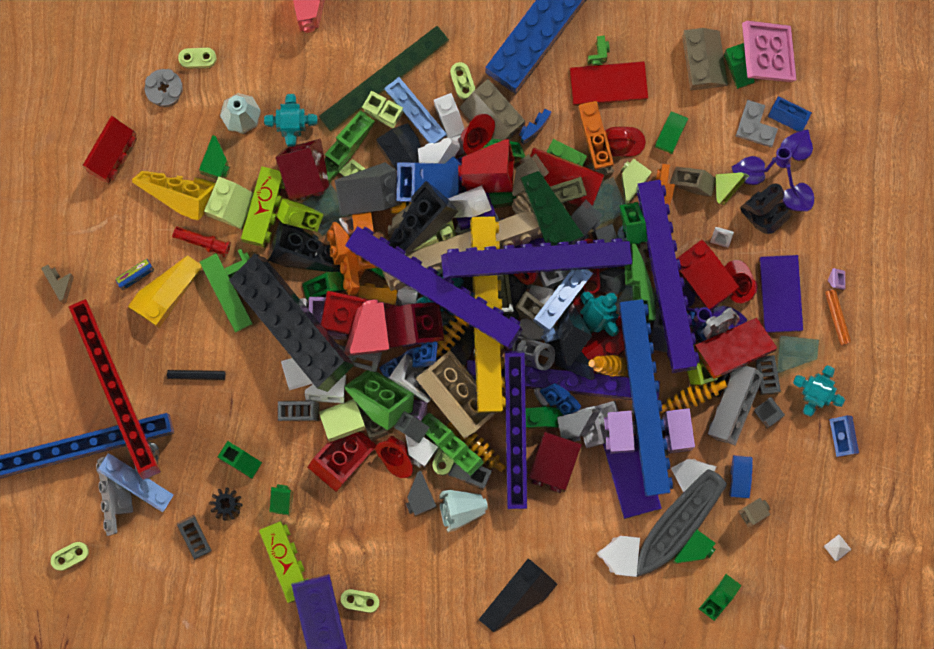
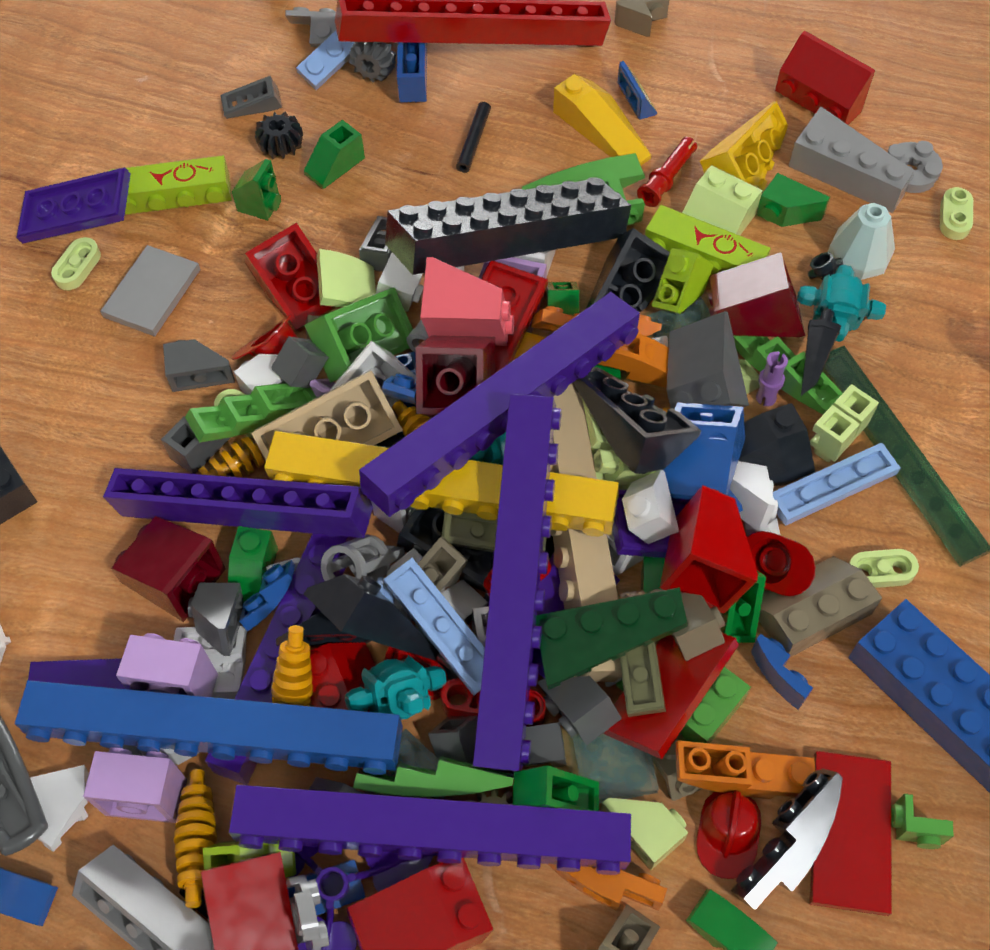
camera: 105 degrees right, 20 degrees down
(172, 128) = (849, 161): none -> light grey wedge
(257, 136) = (824, 265): none -> black plate
(330, 128) = (820, 342): none -> black bar
(359, 152) = (771, 378): none -> medium lavender pin
(367, 546) = (150, 290): none -> light grey tile
(449, 115) = (825, 529): white slope -> none
(461, 508) = (148, 409): light aqua cone -> none
(619, 104) = (804, 829): none -> slope

